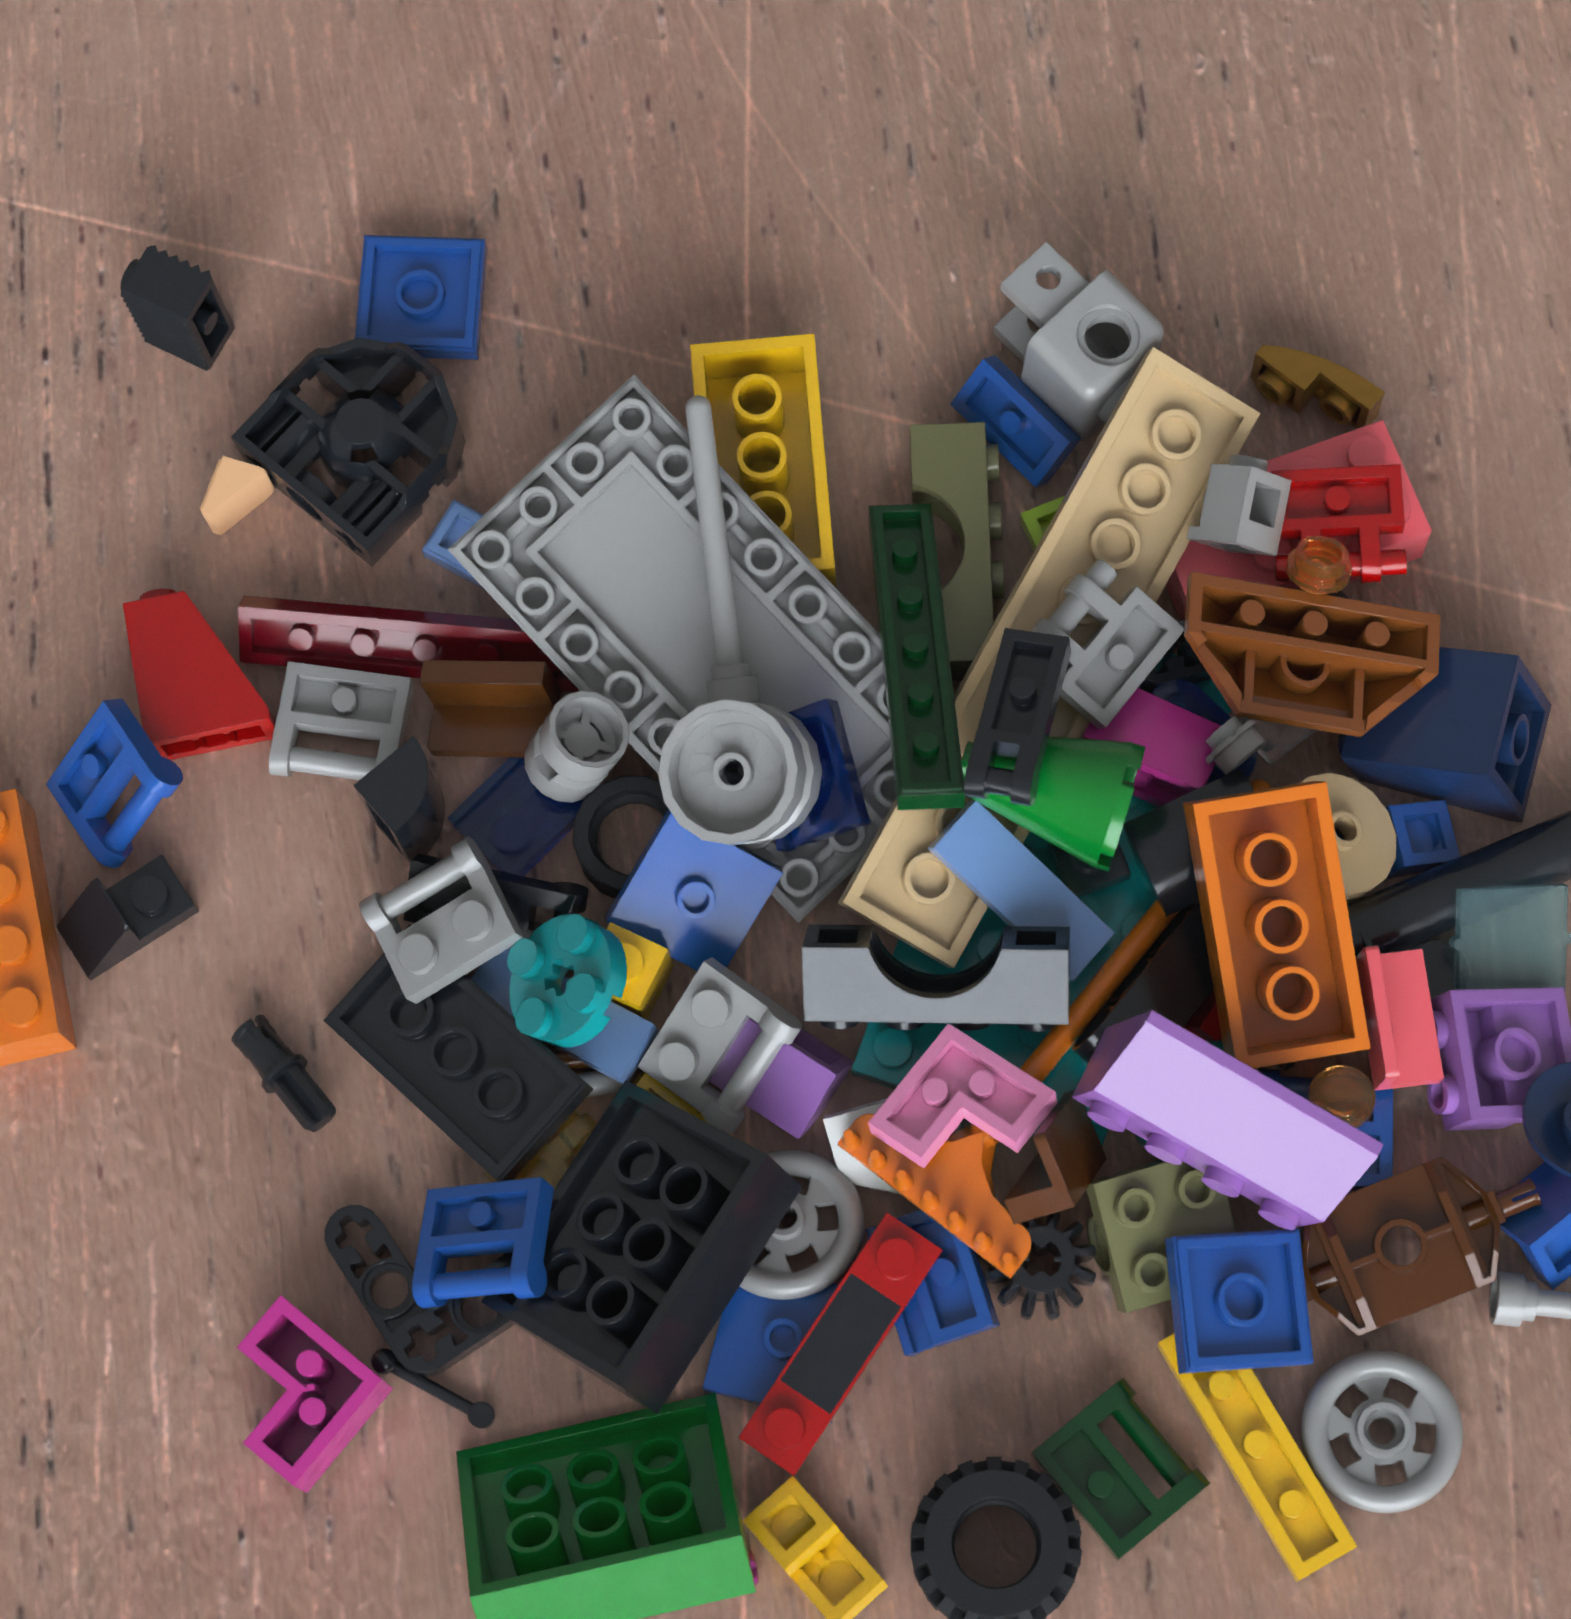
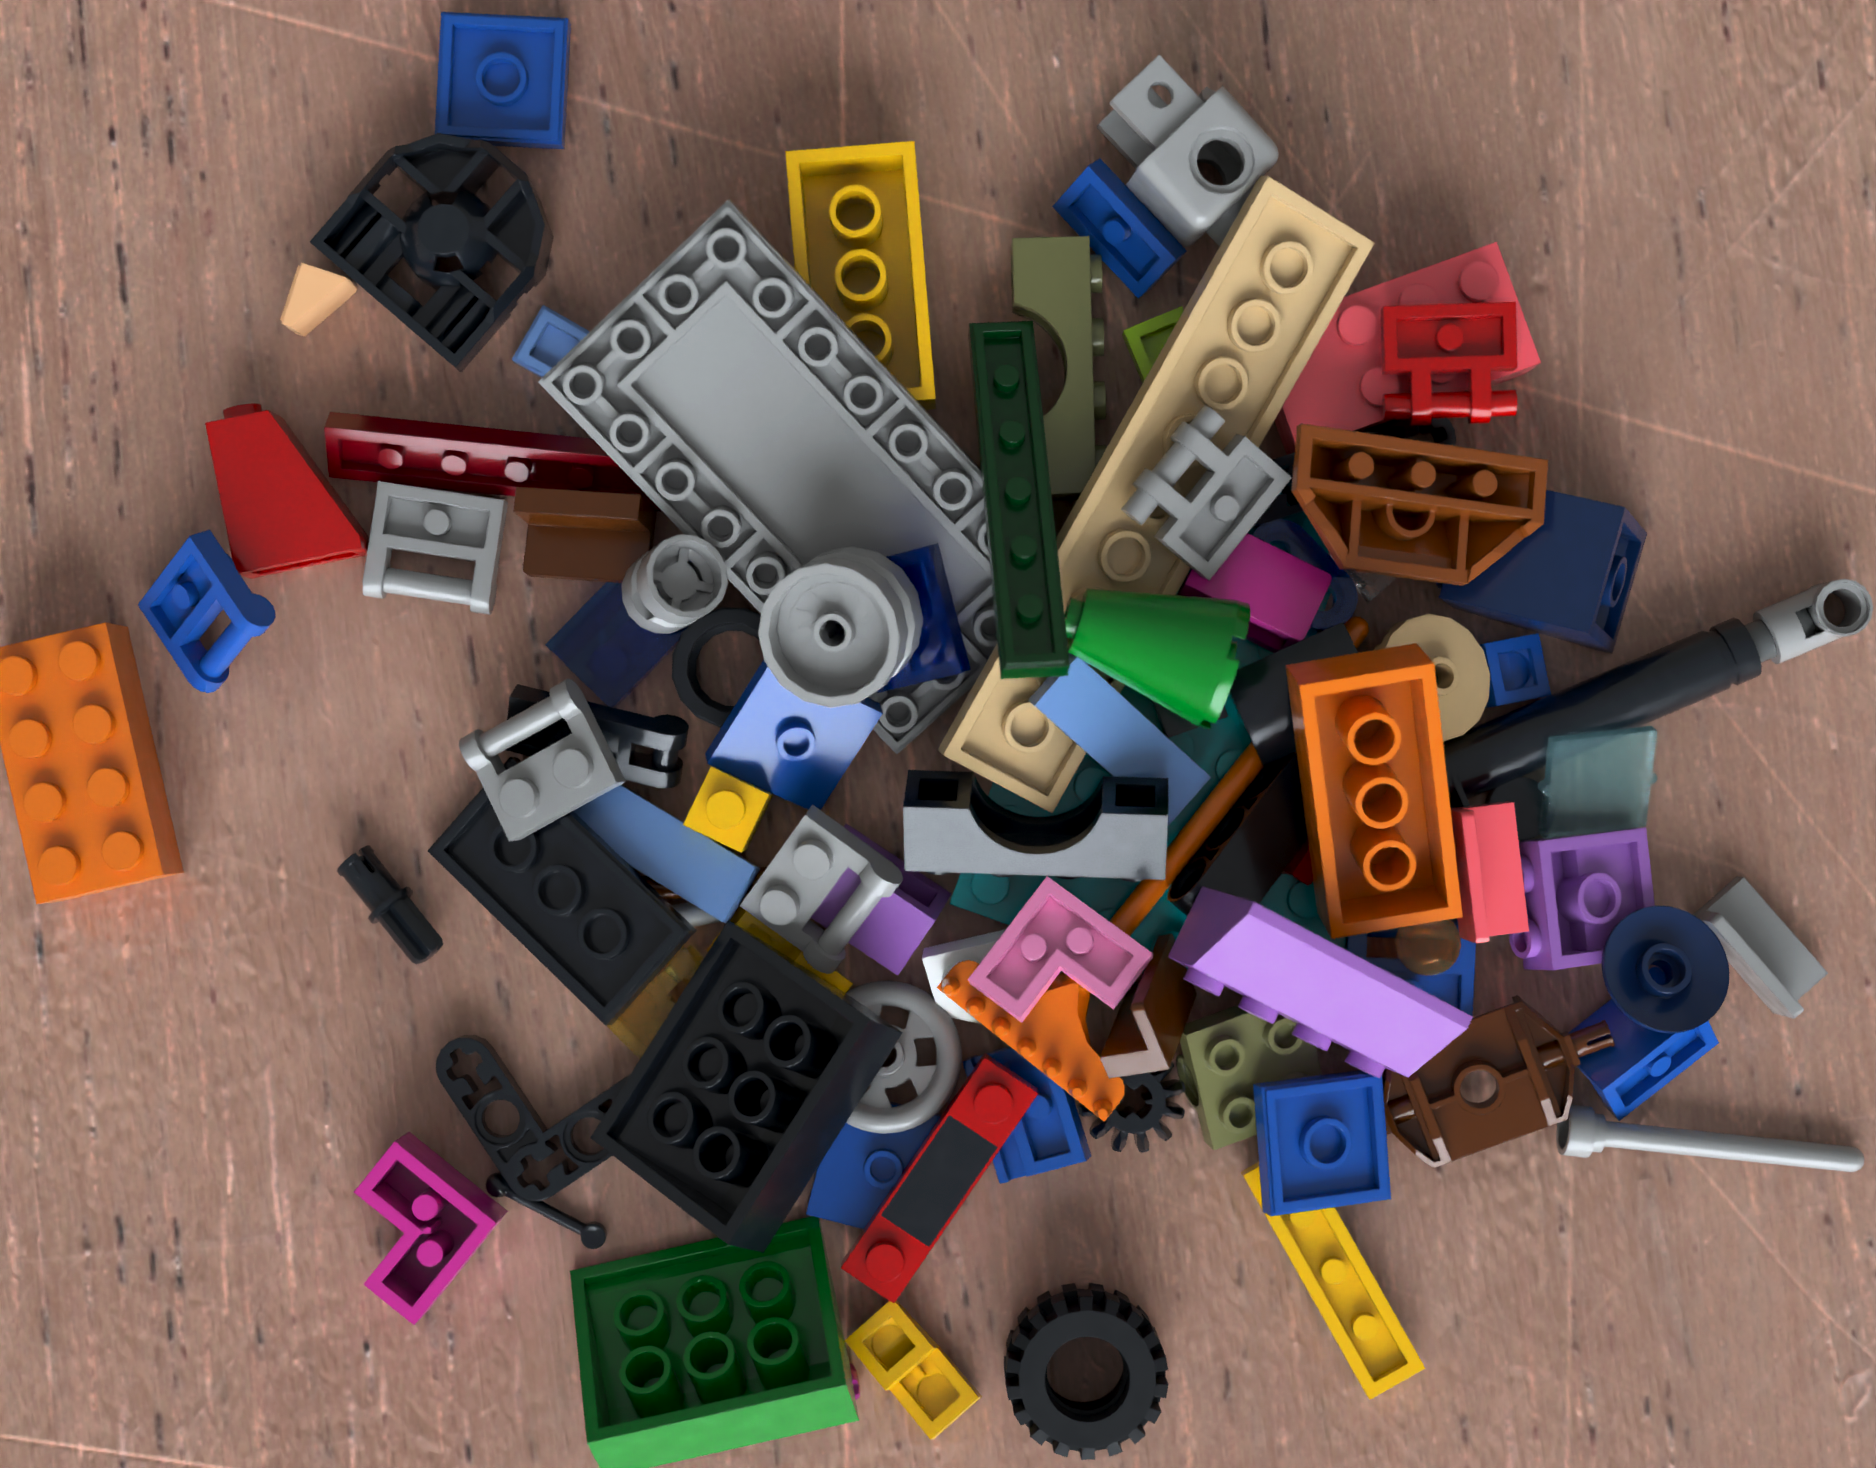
camera: 10 degrees left, 15 degrees up
(120, 920) = (226, 741): black slope -> none
(177, 307) = (245, 95): black brick -> none
(405, 800) = (503, 636): black brick -> none
(483, 1222) = (591, 1062): blue plate -> none
(537, 976) = (638, 822): teal plate -> none
(731, 676) = (830, 521): light grey piece -> none
(1018, 715) = (1123, 582): black plate -> none
(1104, 1484) = (1186, 1304): dark green plate -> none
(1233, 744) = (1336, 597): light grey plate -> none
(1243, 508) = (1354, 348): light grey brick -> none
(1298, 376) = (1404, 184): pearl gold slope -> none
(1319, 565) = (1430, 415): clear orange plate -> none
(1431, 1405) = (1489, 1293): light grey plate -> none

